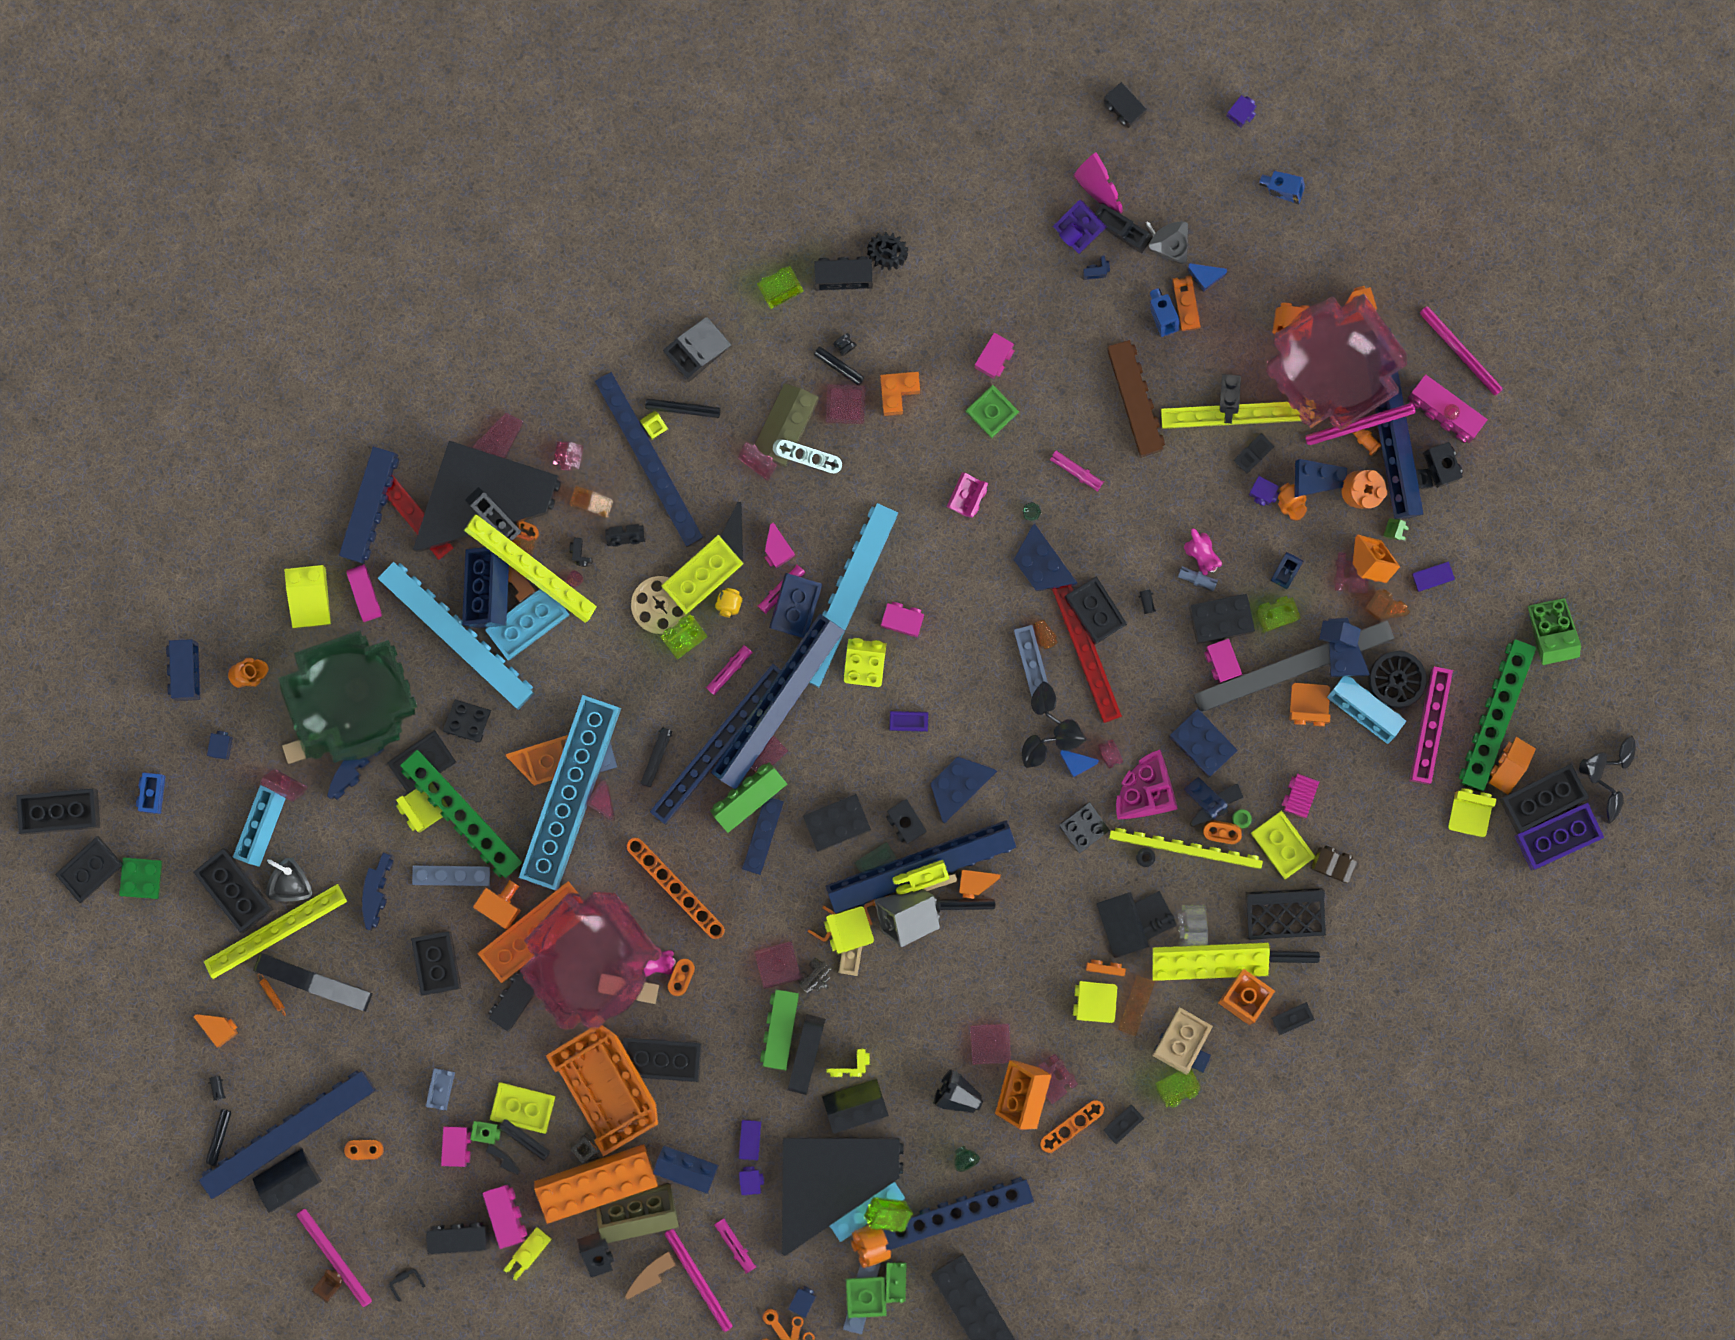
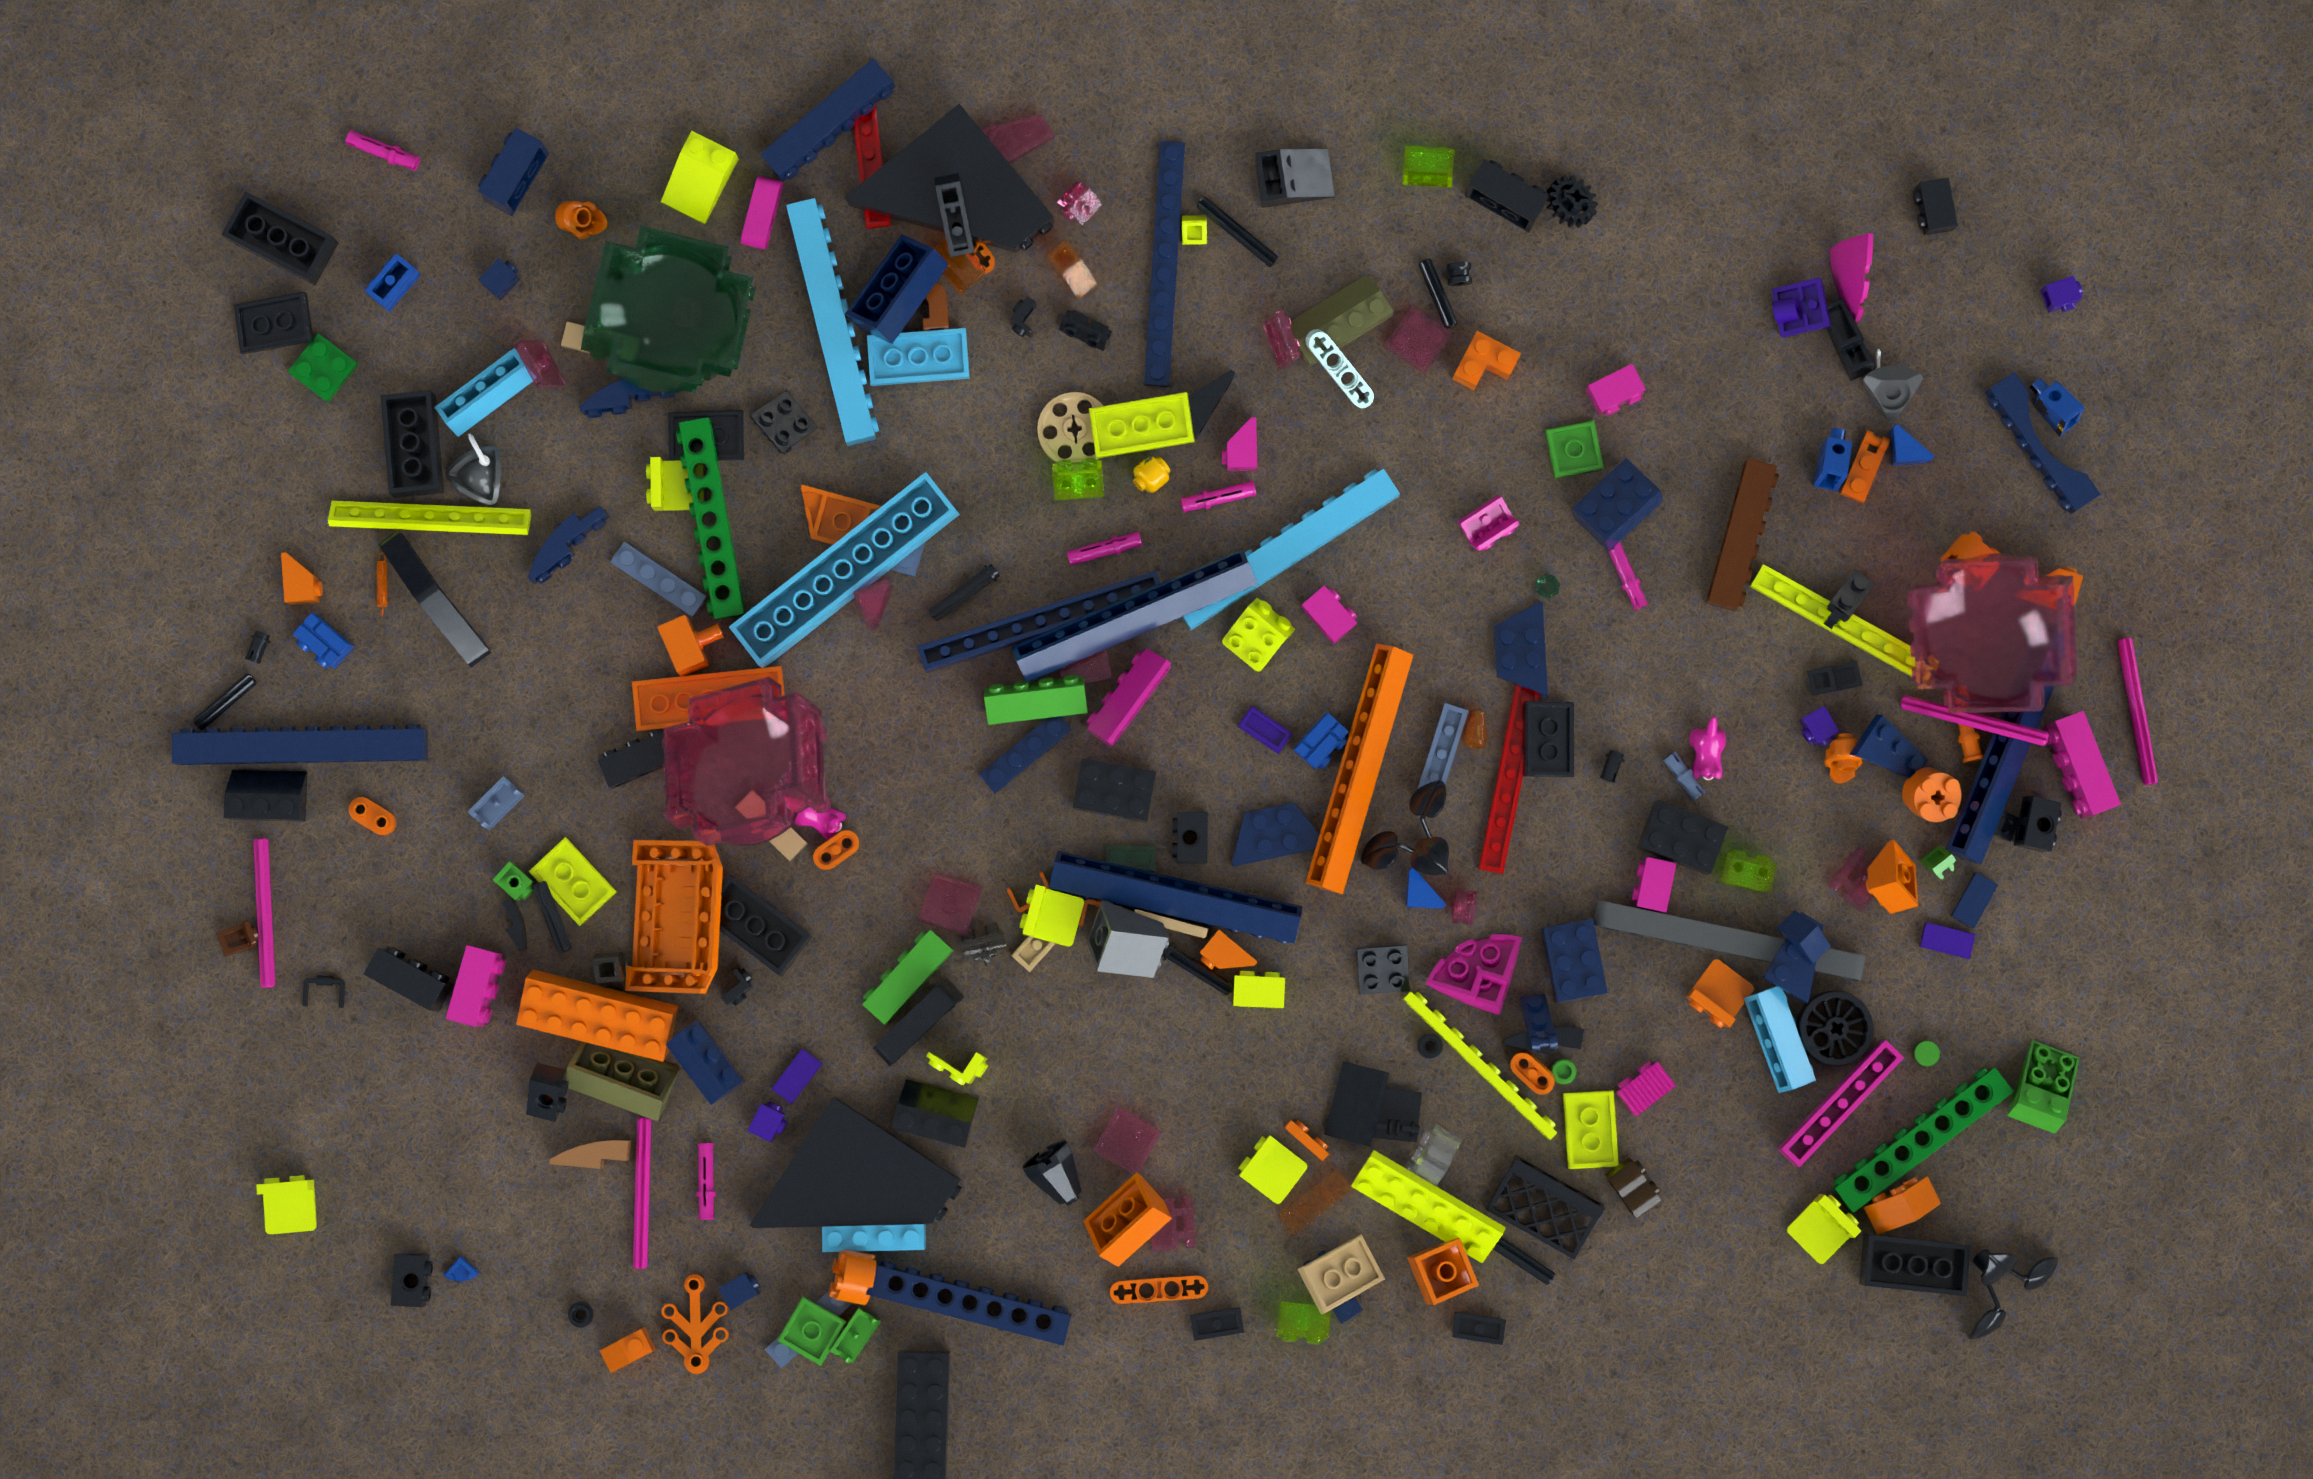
camera: 30 degrees right, 0 degrees up
(96, 709) = (391, 153): none -> dark pink pin
(257, 1056) = (323, 641): none -> blue brick
(436, 963) = (579, 663): black brick -> none
(455, 1146) = (472, 876): dark pink brick -> none
(529, 1251) = (478, 1042): neon yellow hinge -> none
(530, 568) = (958, 298): neon yellow plate -> none
(574, 579) = (999, 342): clear pink hinge -> none
(667, 883) = (892, 736): orange beam -> none
(677, 1111) = (737, 993): none -> black bracket
(795, 605) = (1222, 523): dark blue plate -> none
(807, 756) = (1129, 697): none -> dark pink slope
(888, 1214) = (893, 1256): clear neon green brick -> none
(921, 877) = (1168, 909): neon yellow hinge -> none
(949, 705) = (1321, 741): none -> blue brick
(965, 1159) = (1018, 1249): clear green brick -> none
(986, 707) = (1359, 768): none -> orange brick
(1013, 893) = (1259, 991): none -> neon yellow brick
(1043, 430) = (1617, 504): none -> dark blue brick
(1096, 272) = (1784, 367): dark blue bracket -> none
(1253, 201) = (2071, 486): none -> dark blue arch
(1286, 570) = (1789, 829): dark blue slope -> none
(1384, 607) = (1872, 940): clear orange slope -> none
(1434, 539) = (1974, 900): none -> dark blue tile
(1455, 414) = (2086, 776): clear pink hinge -> none
(1465, 658) = (1926, 1053): none -> bright green tile
(1559, 836) = (1905, 1317): dark purple brick -> none

